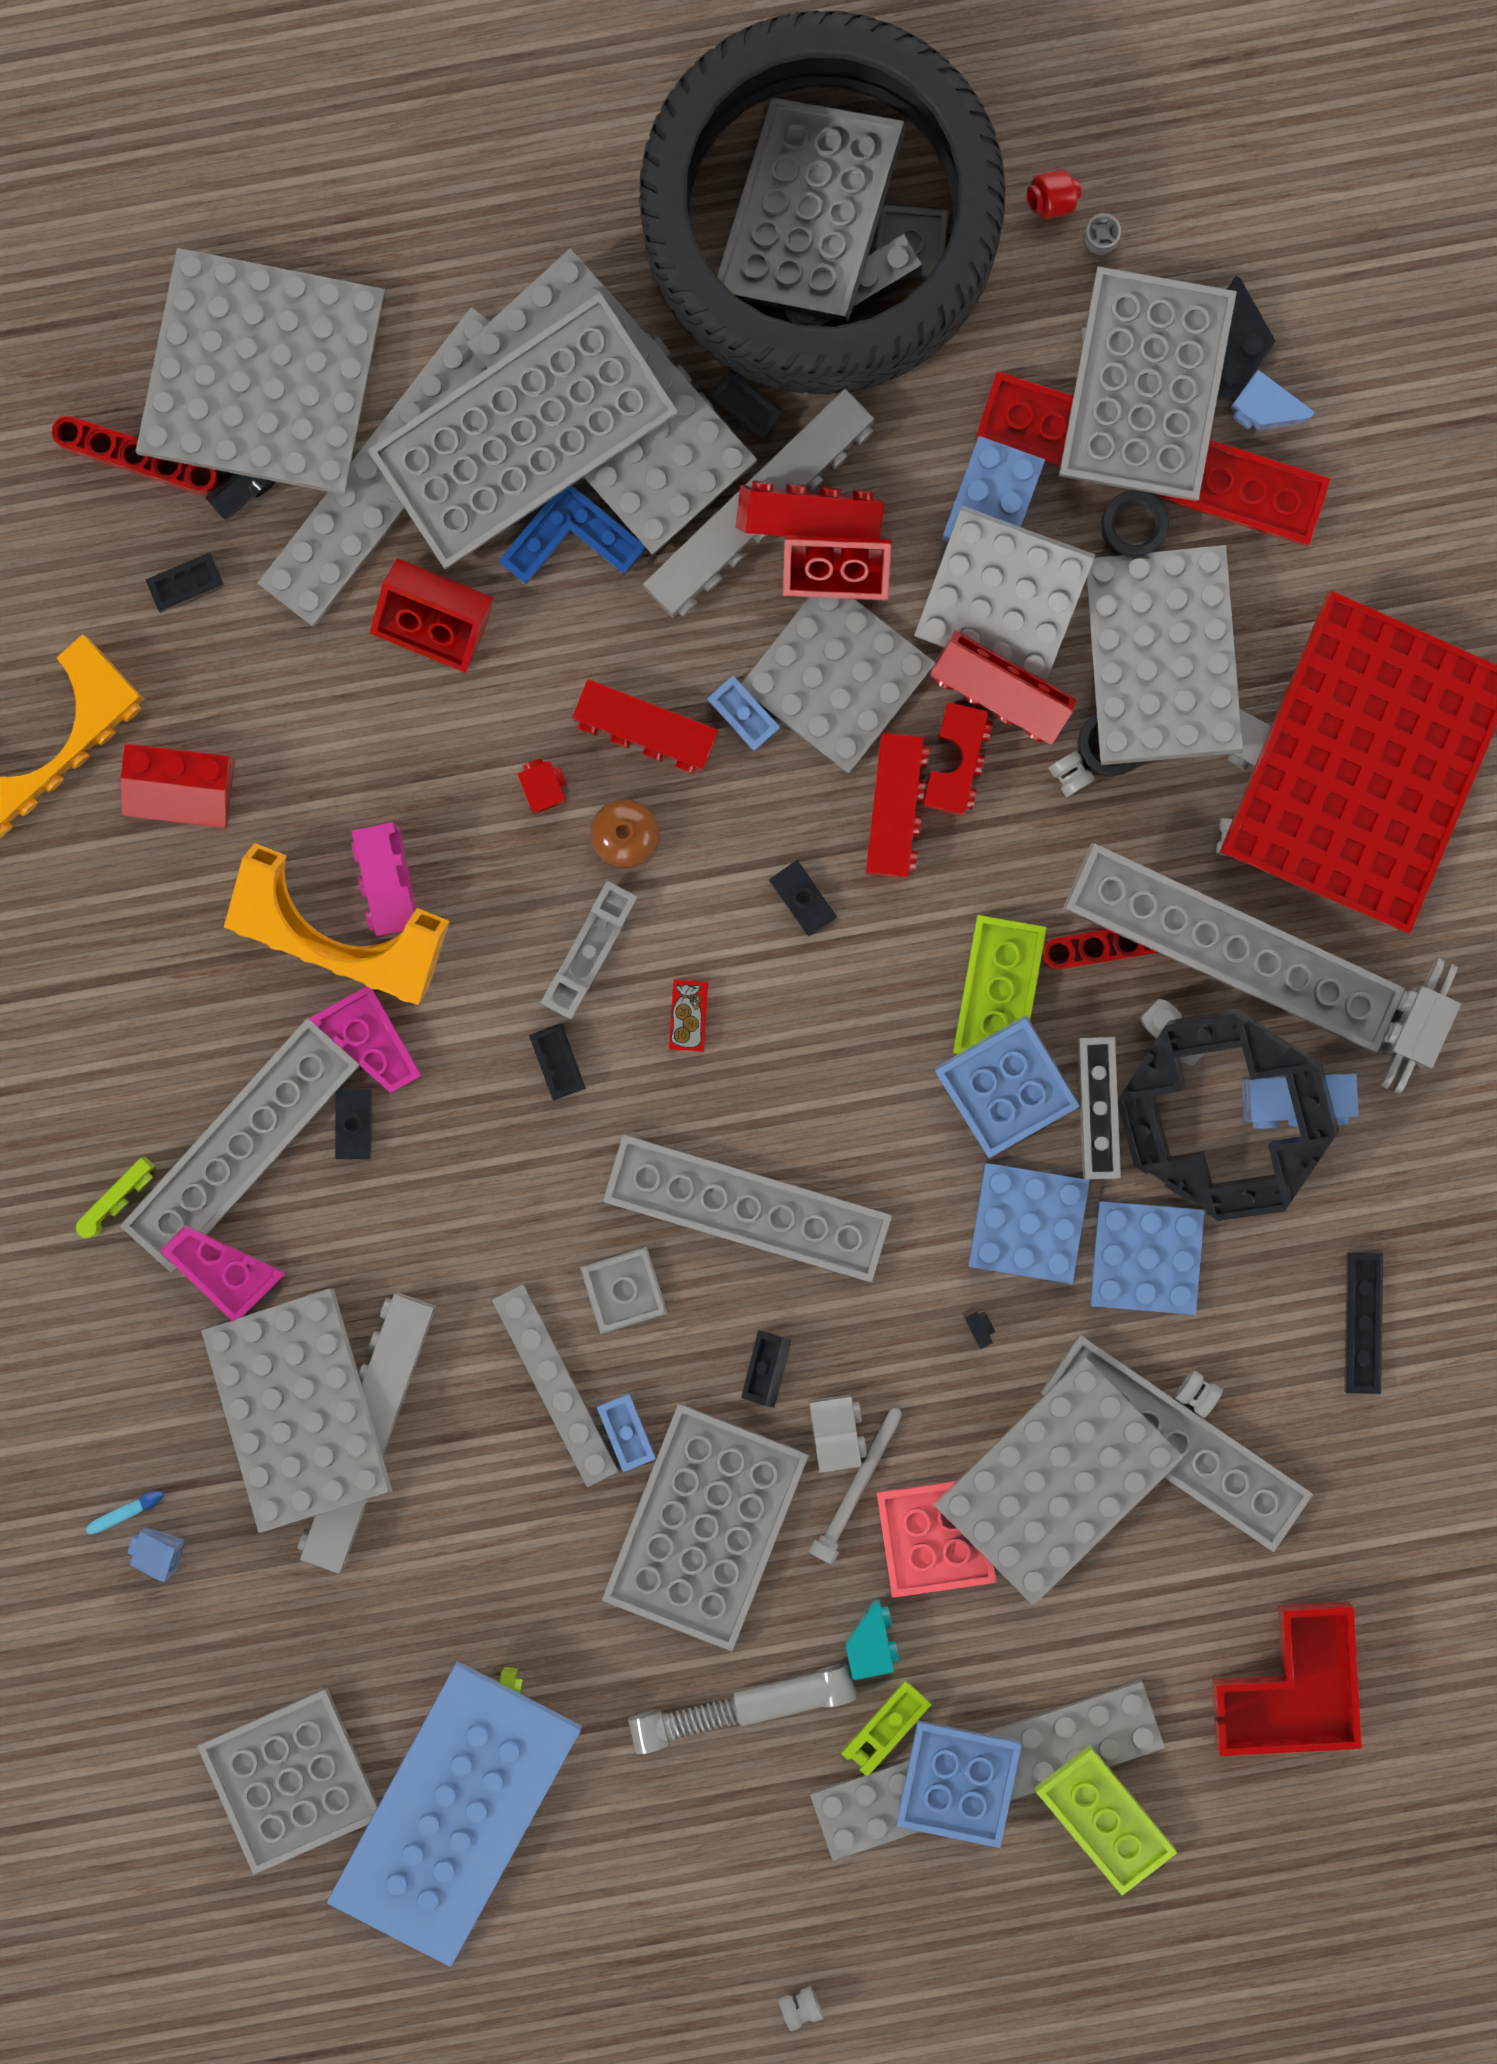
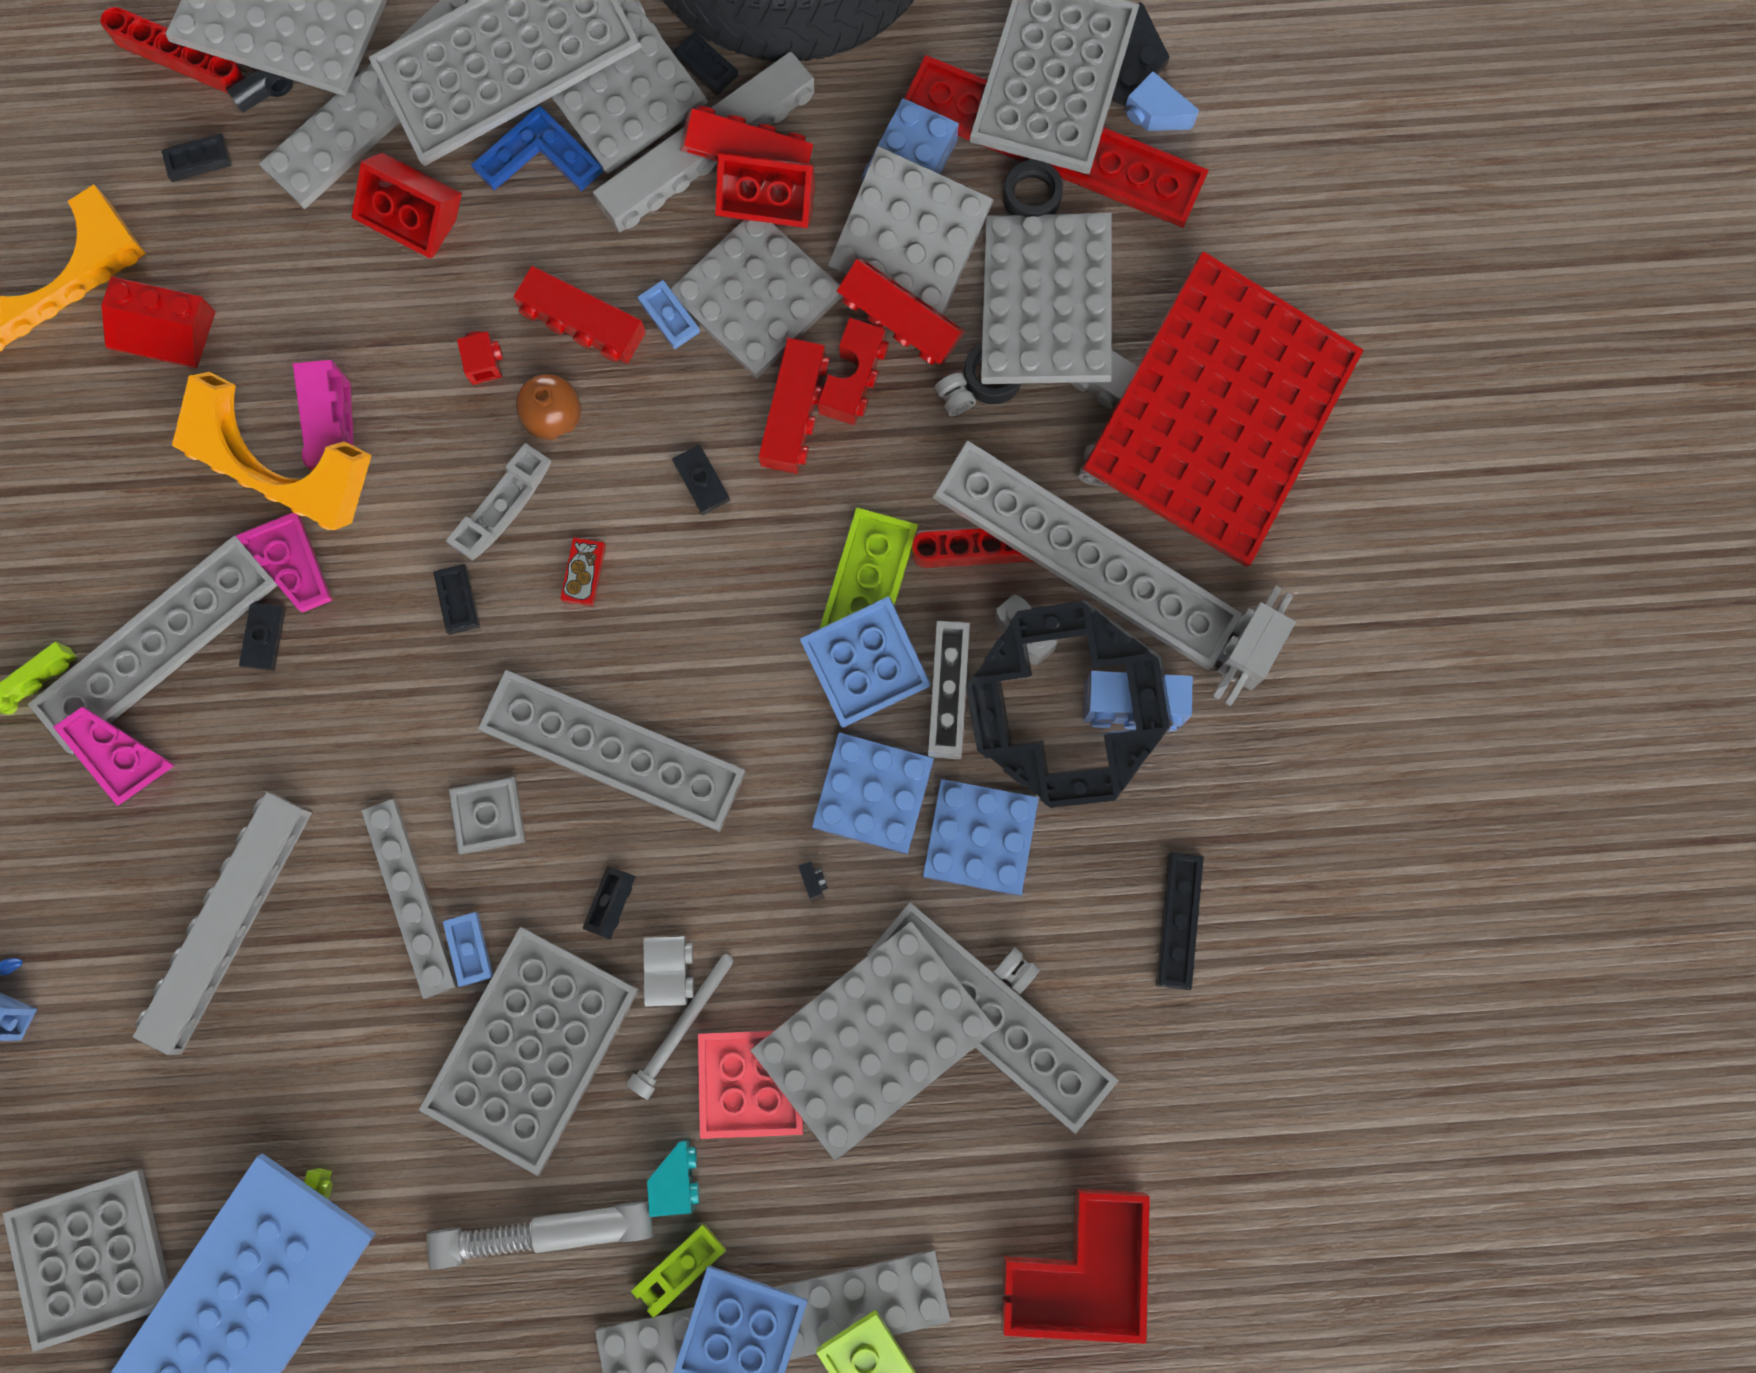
camera: 10 degrees right, 10 degrees down
(296, 1410) = (156, 894): light grey plate -> none

